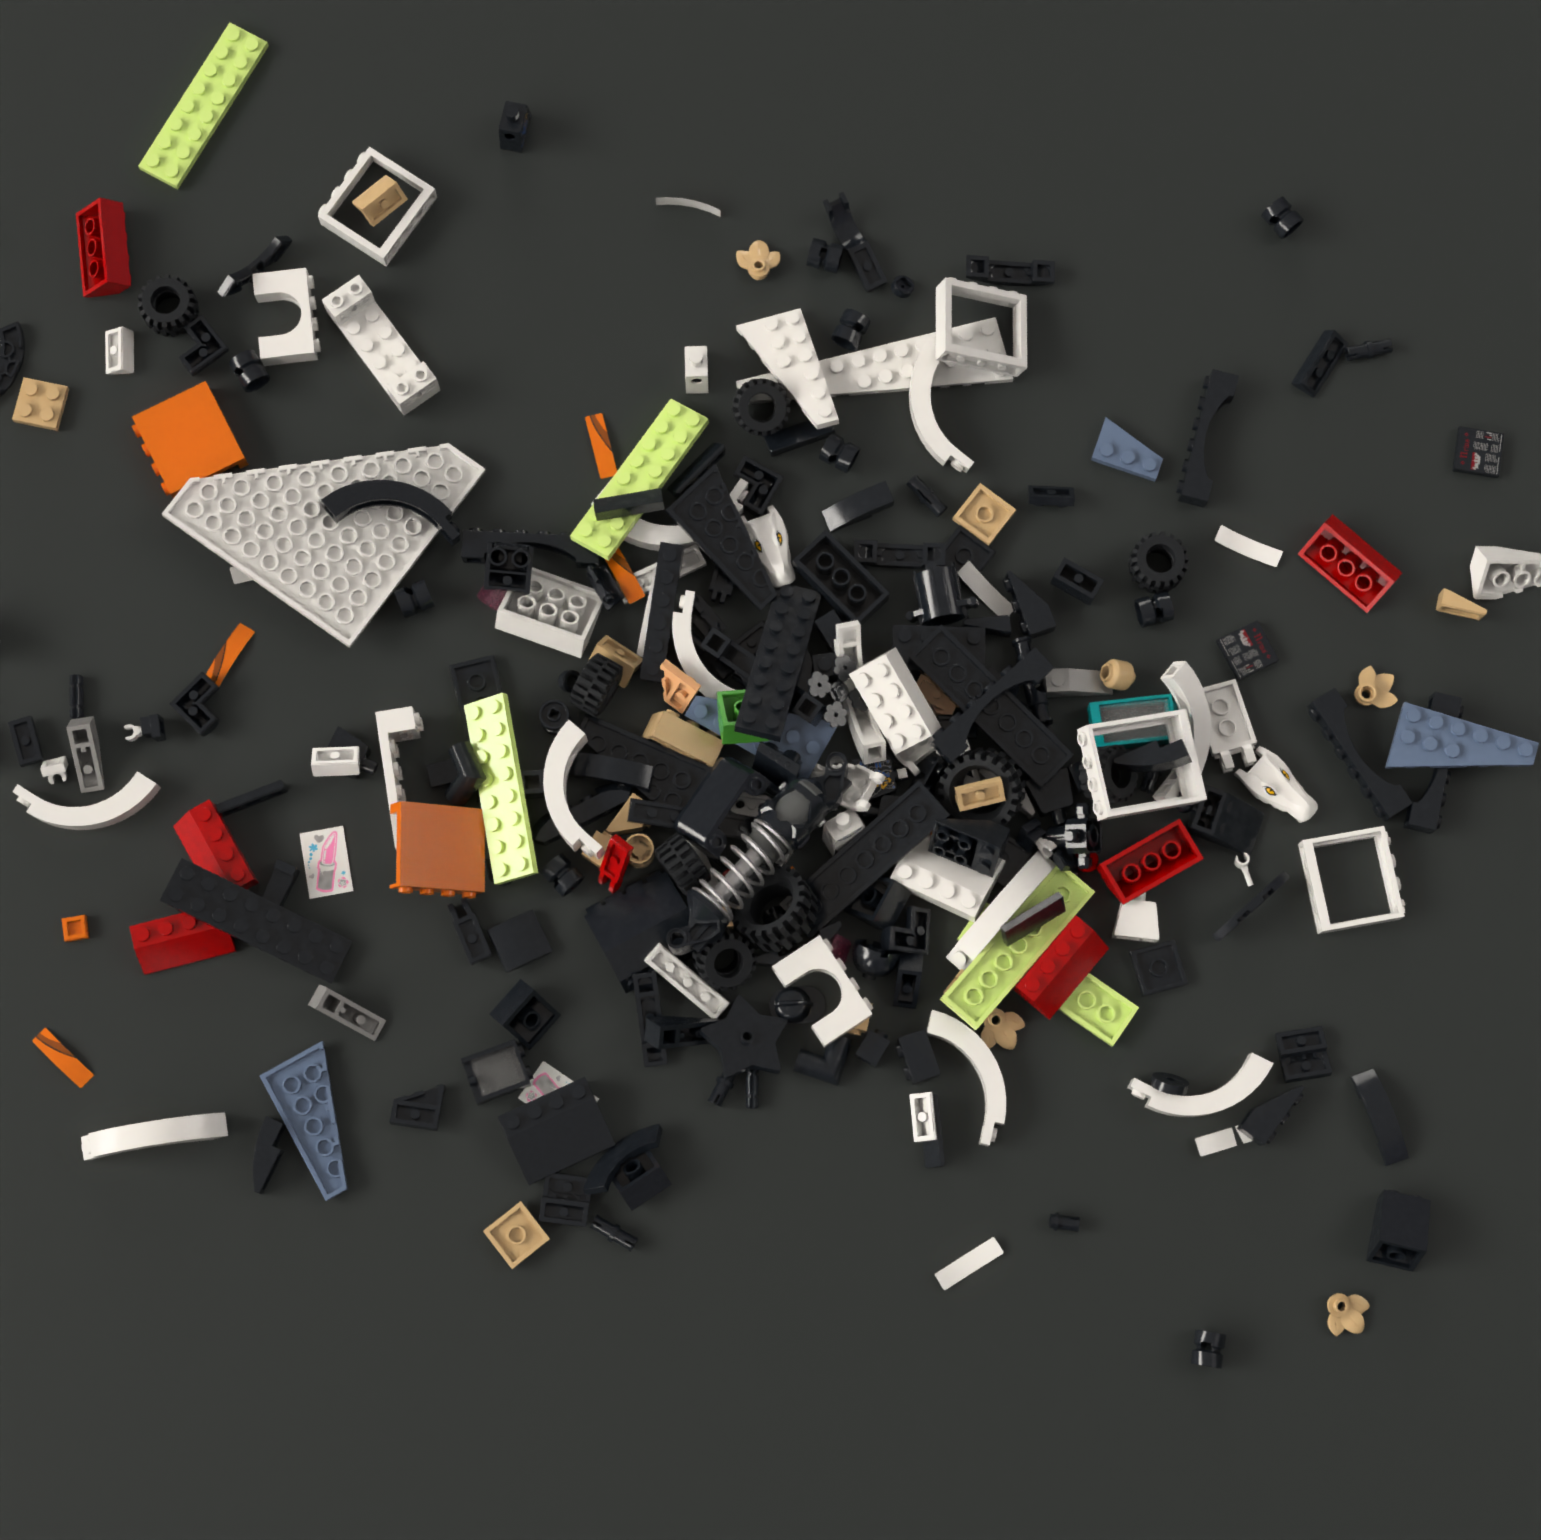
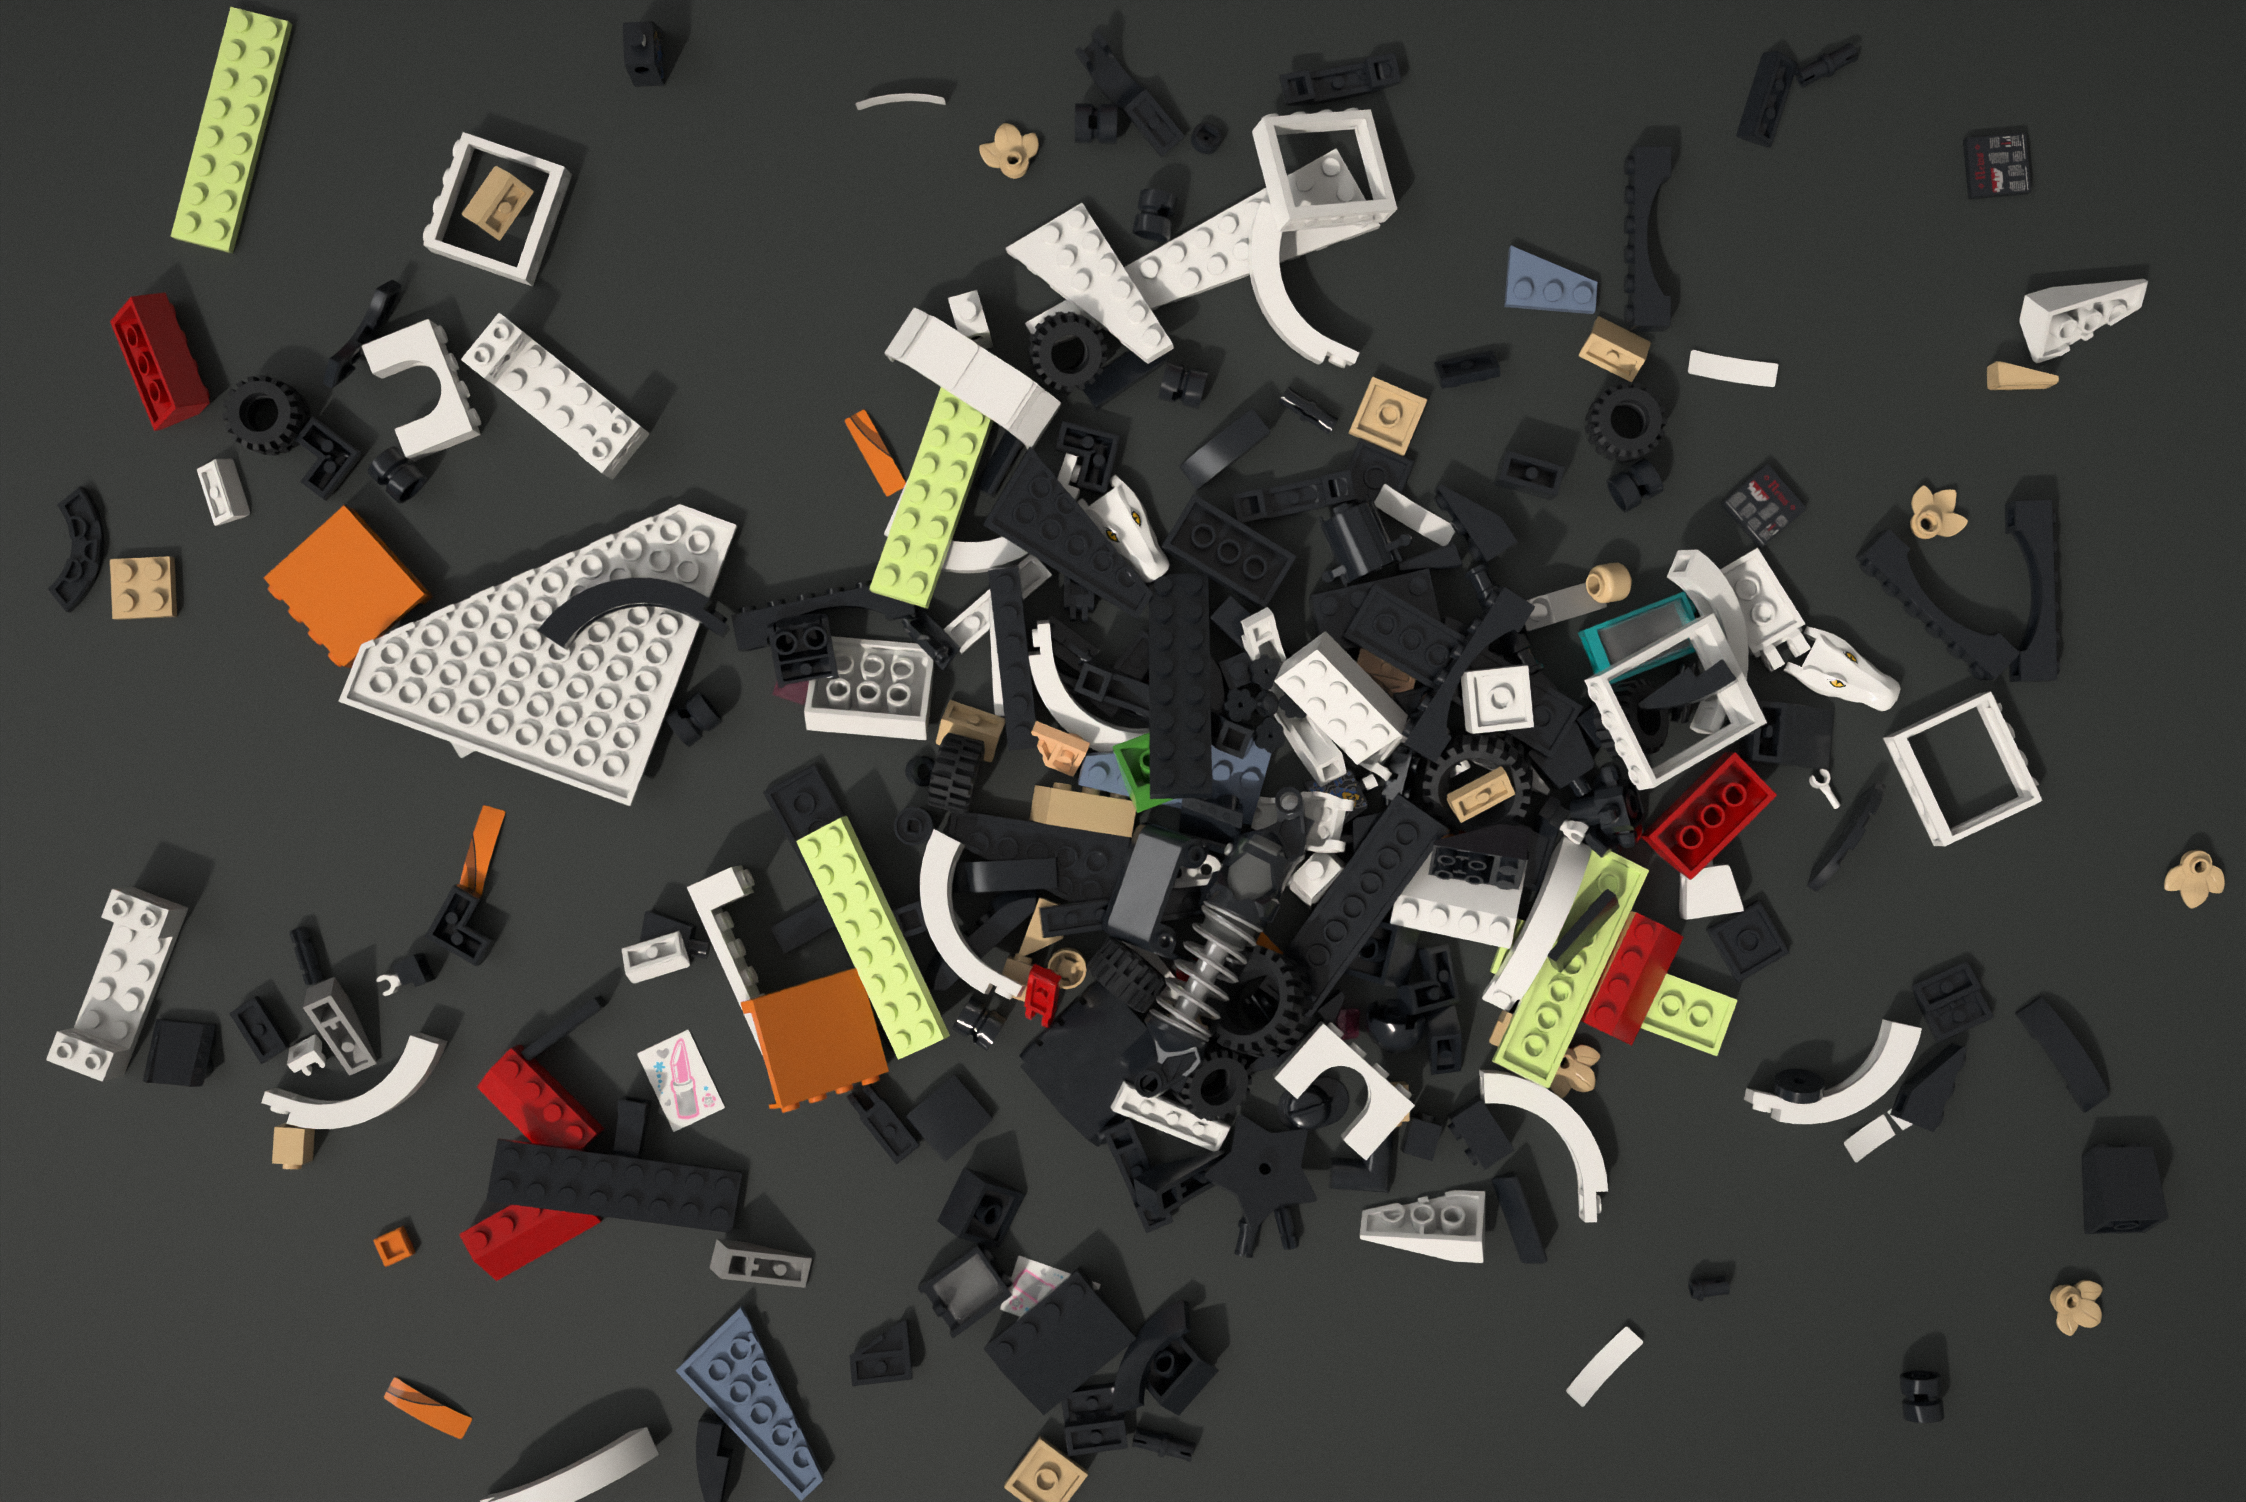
camera: 15 degrees left, 10 degrees up
(24, 831) = (292, 1146): none -> tan brick
(469, 775) = (828, 930): black brick -> none
(625, 577) = (955, 621): orange sticker -> none
(628, 504) = (933, 529): black slope -> none
(689, 407) = (974, 376): none -> white windscreen
(871, 1122) = (1438, 1227): none -> white wedge
(923, 1117) = (1505, 1206): white slope -> none
(1009, 728) = (1497, 699): none -> white container
(1164, 509) = (1615, 349): none -> tan panel
(1349, 563) = (1868, 358): red slope -> none
(1445, 741) = (2036, 564): sand blue wing -> none
(1510, 1012) = (2192, 882): none -> tan plate

